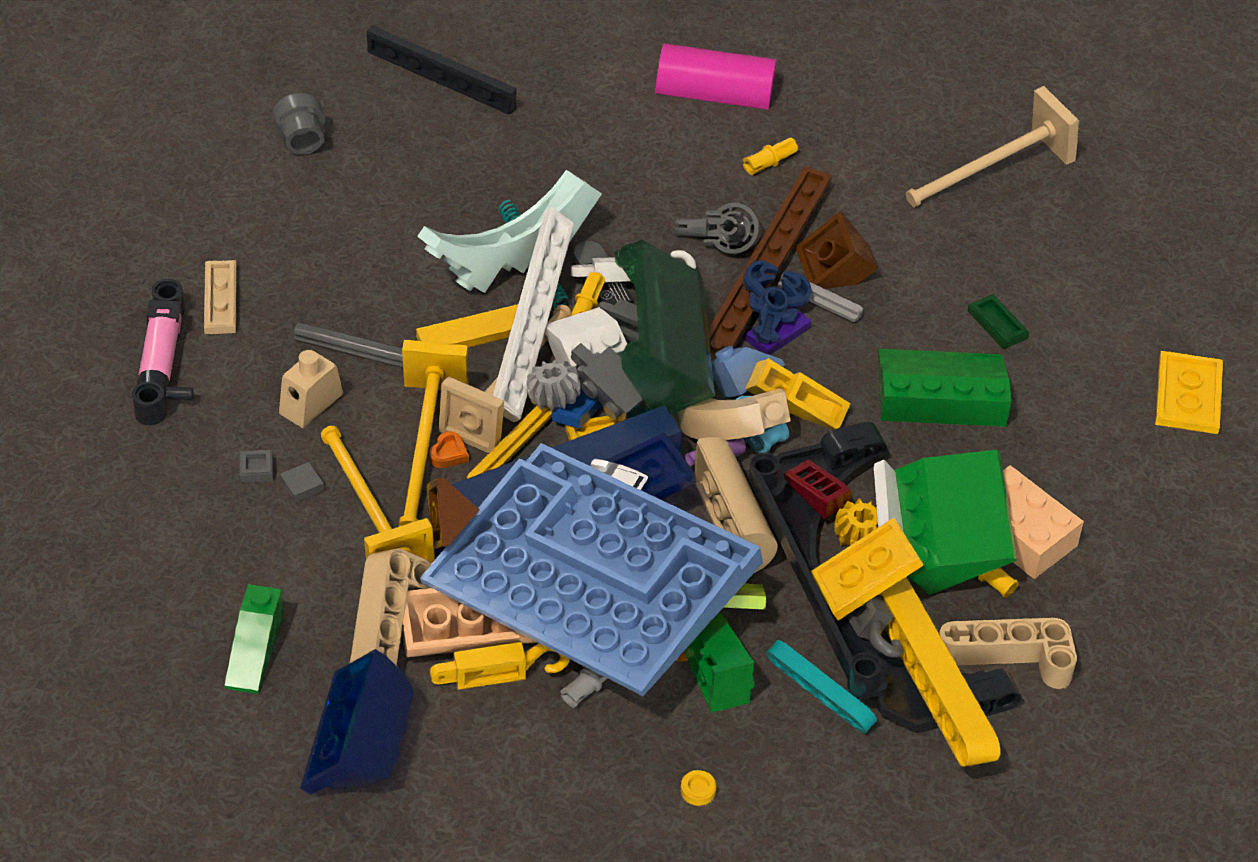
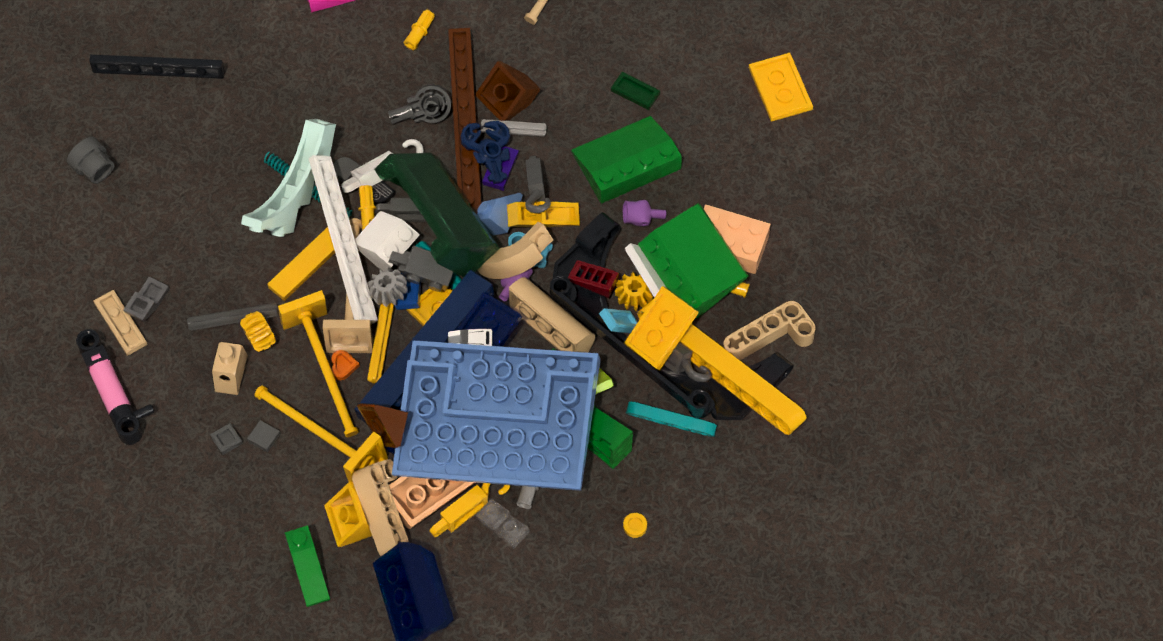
camera: 25 degrees left, 15 degrees up
(266, 288) = (147, 300): none -> flat silver slope
(338, 609) = (347, 516): none -> yellow slope
(368, 367) = (257, 331): none -> yellow gear
(528, 707) = (502, 524): none -> clear slope
(807, 357) = (535, 186): none -> dark grey piece
(817, 540) = (618, 320): none -> medium azure tile
(920, 444) = (640, 213): none -> medium lavender piece

